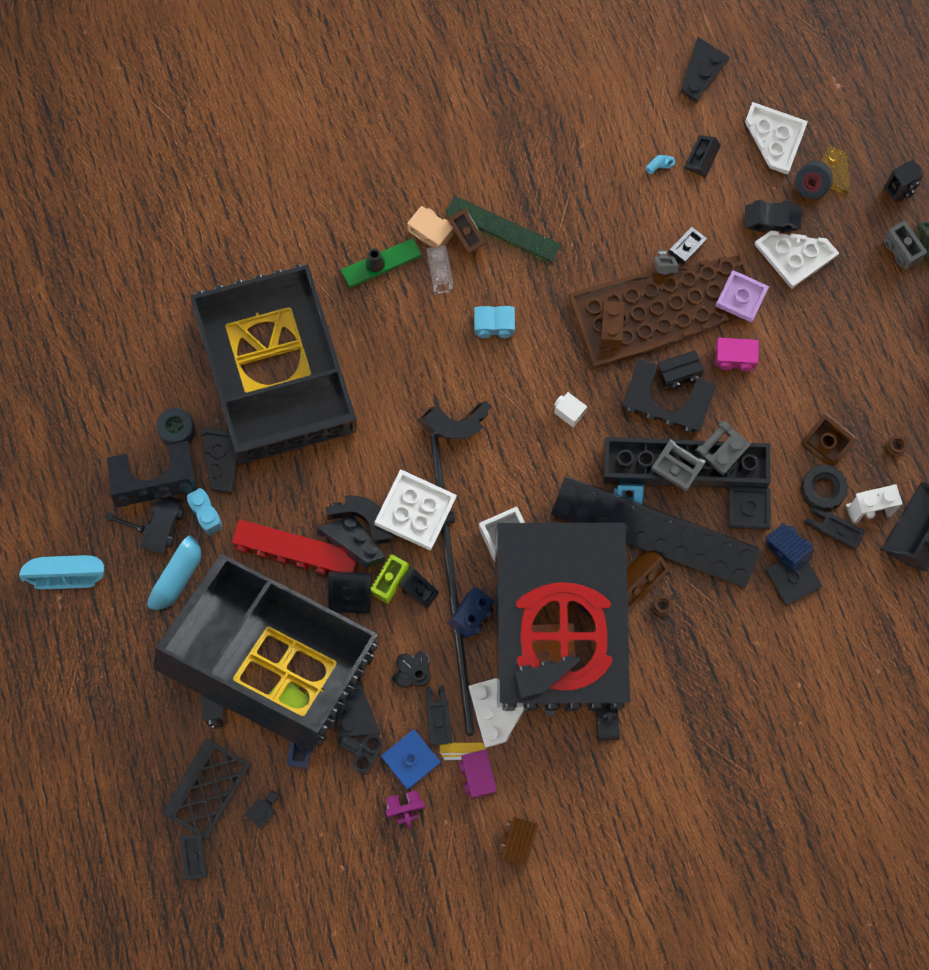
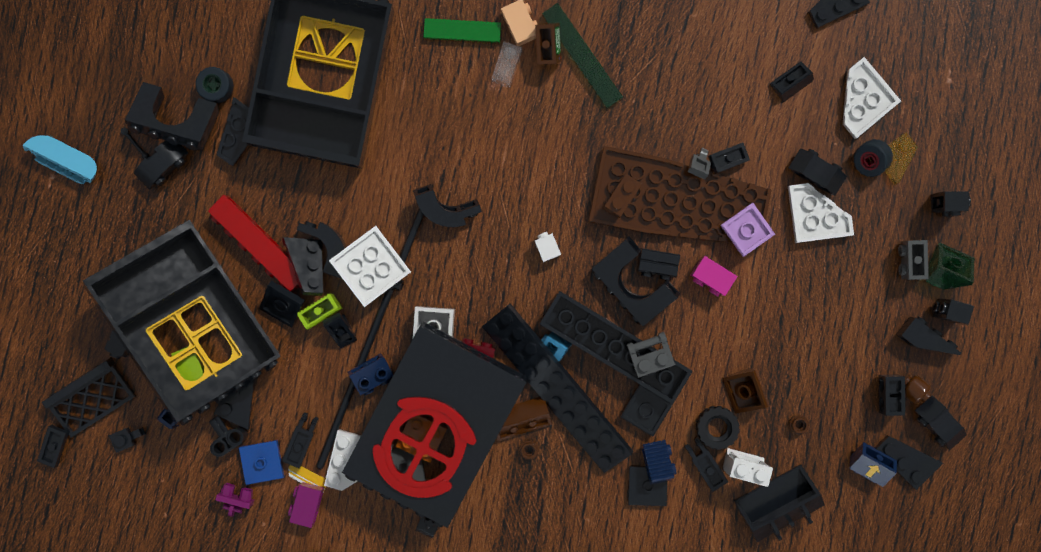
camera: 30 degrees right, 15 degrees up
(176, 574) = (153, 210): medium azure brick -> none
(204, 511) = (201, 166): medium azure brick -> none
(375, 261) = (455, 32): black cone -> none
(410, 668) = (301, 389): black plate -> none
(494, 321) = (527, 135): medium azure brick -> none
(537, 680) = (382, 475): black slope -> none
(660, 161) = (751, 67): medium azure arm -> none
(676, 471) = (599, 353): dark grey plate -> none

